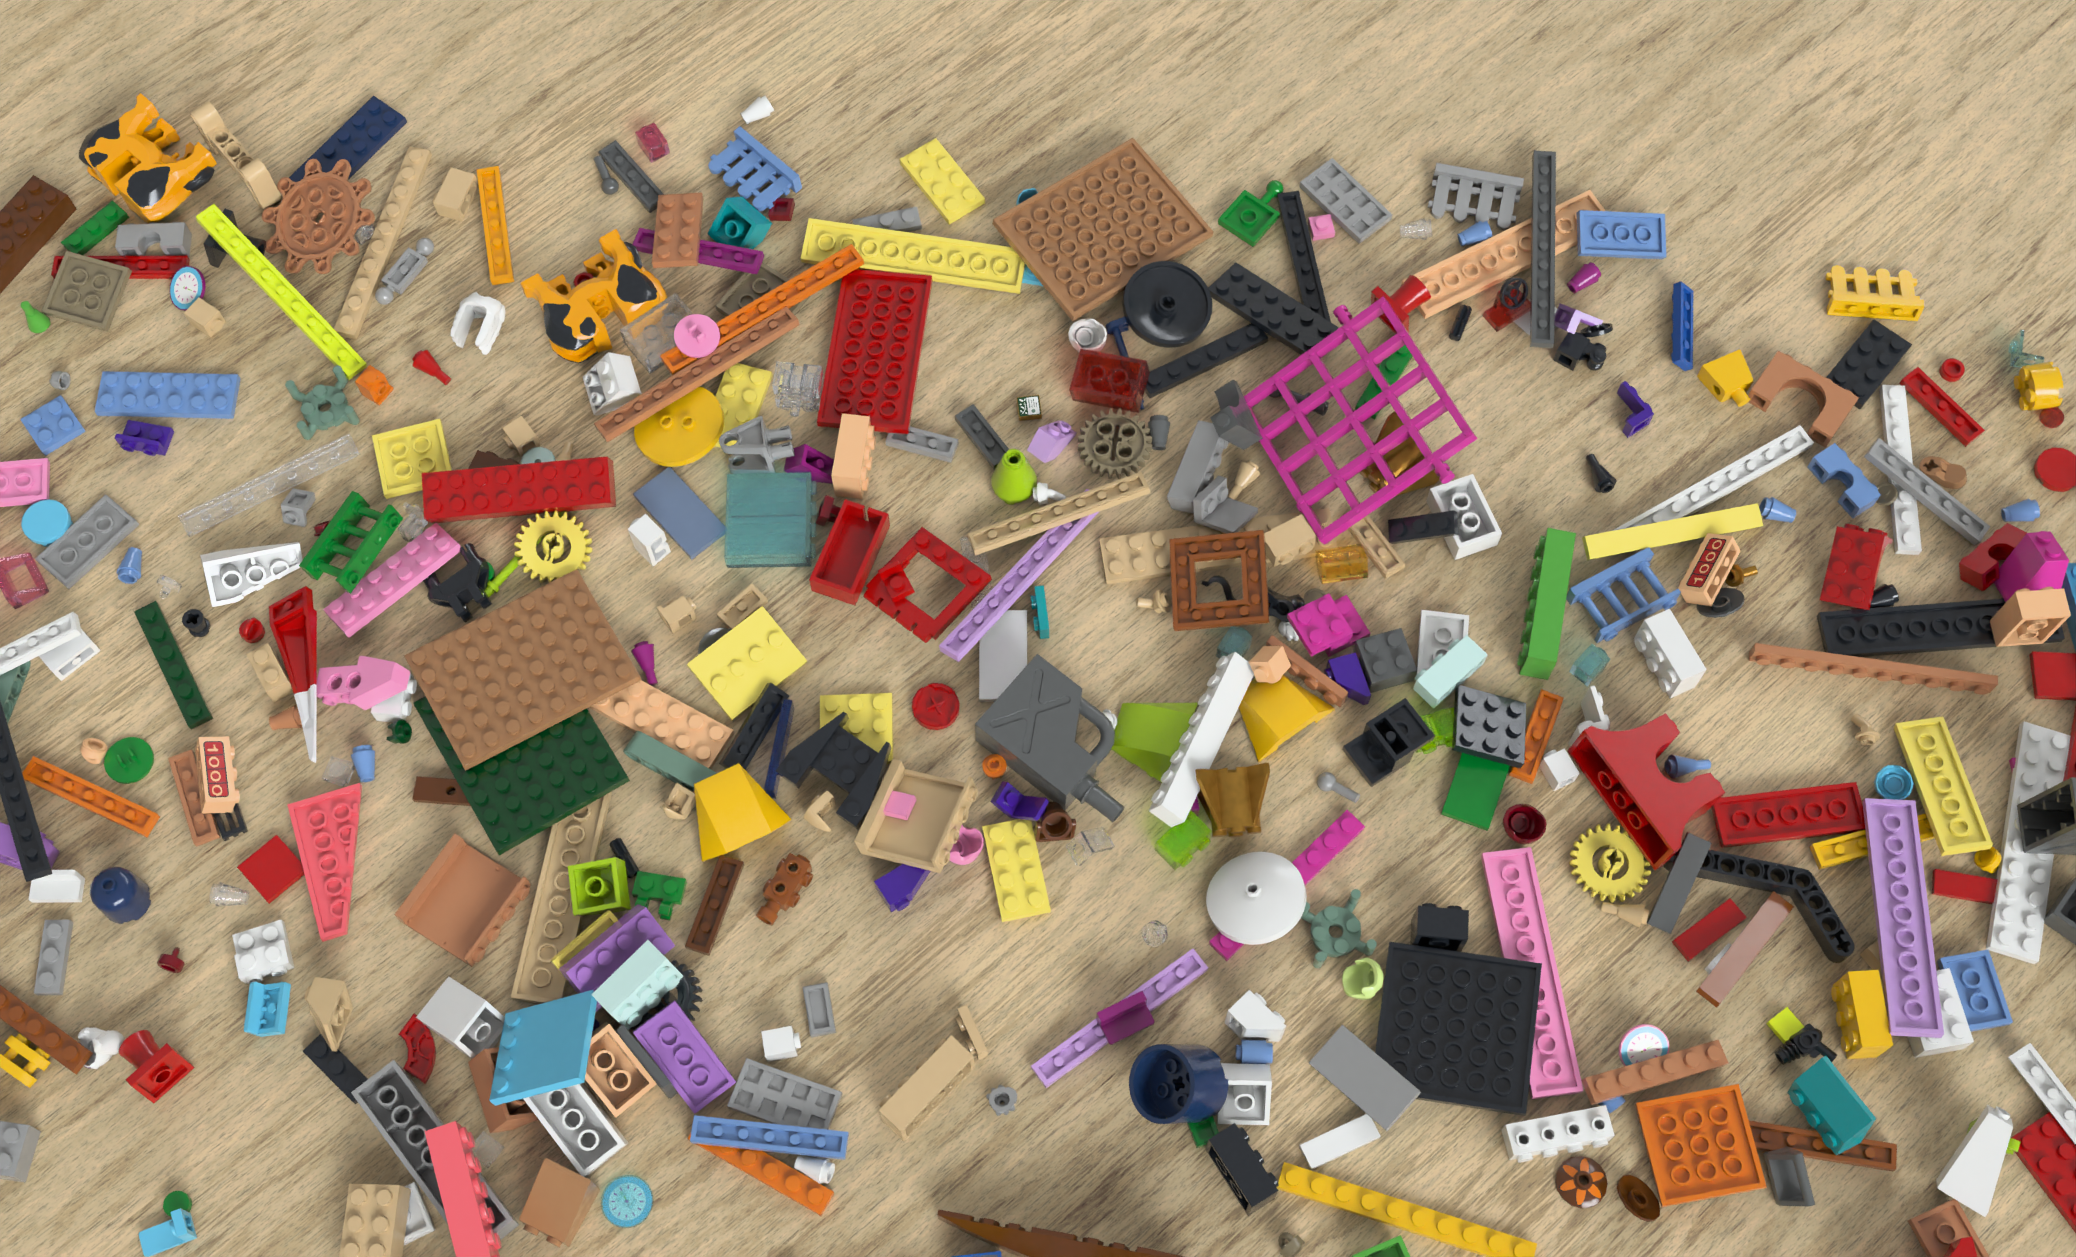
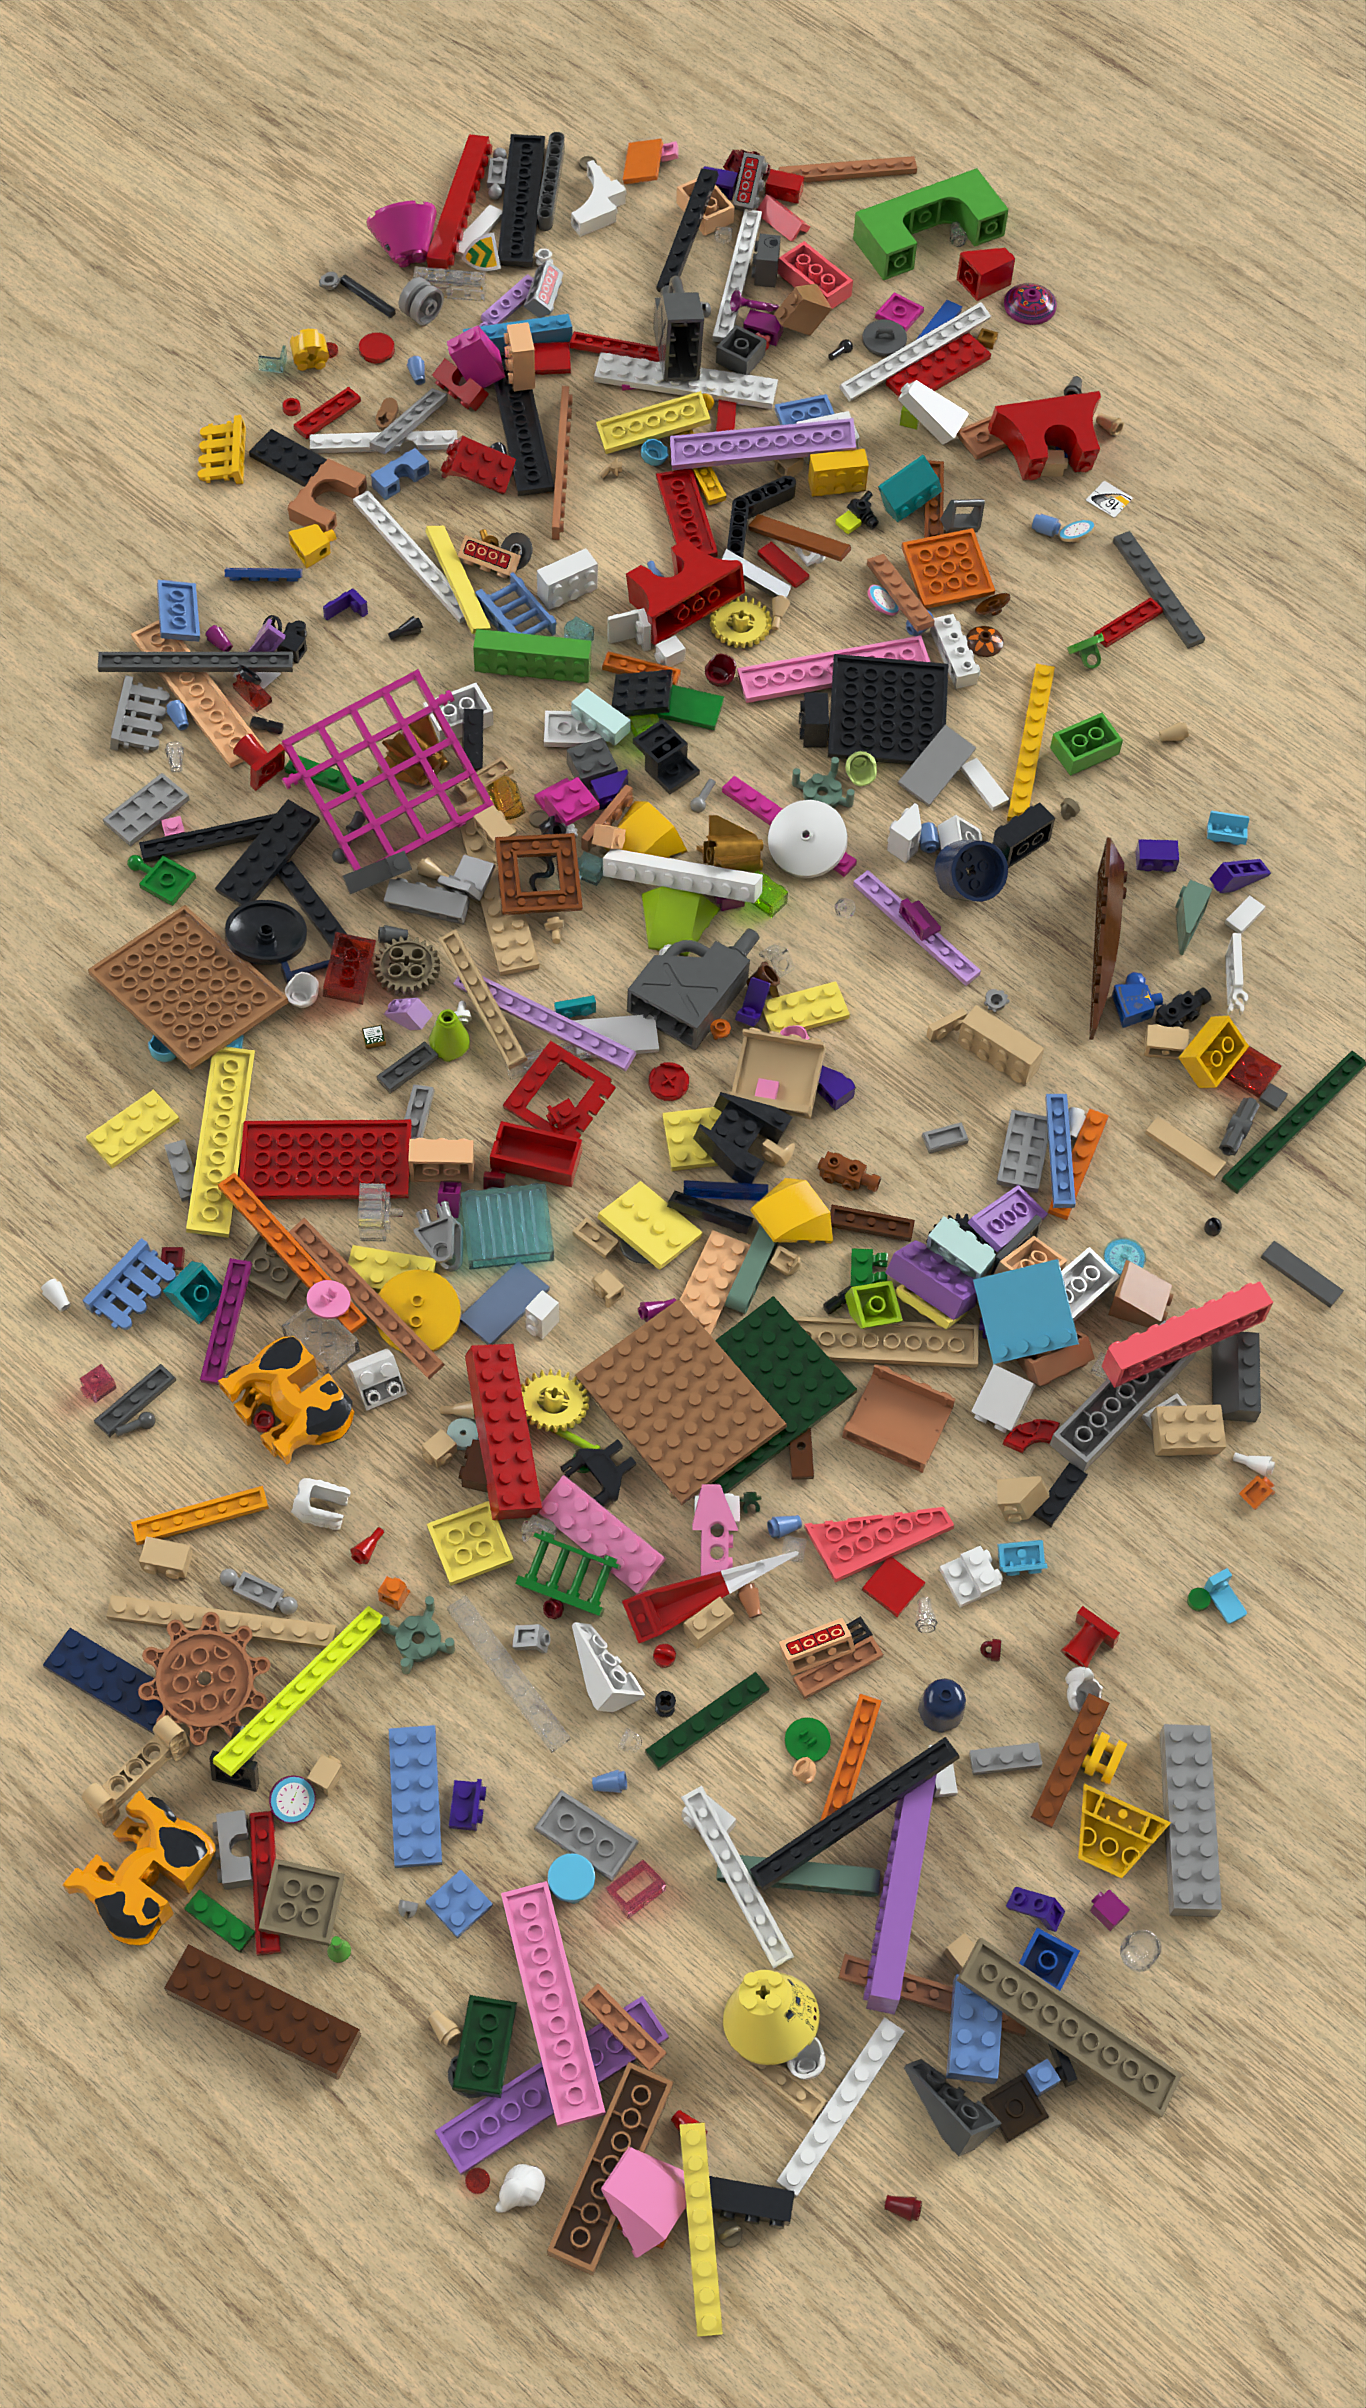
camera: 100 degrees left, 5 degrees down
(677, 230) = (205, 1339): nougat plate -> none
(780, 1043) = (980, 1158): white brick -> none
(1775, 510) = (430, 516): medium blue cone -> none

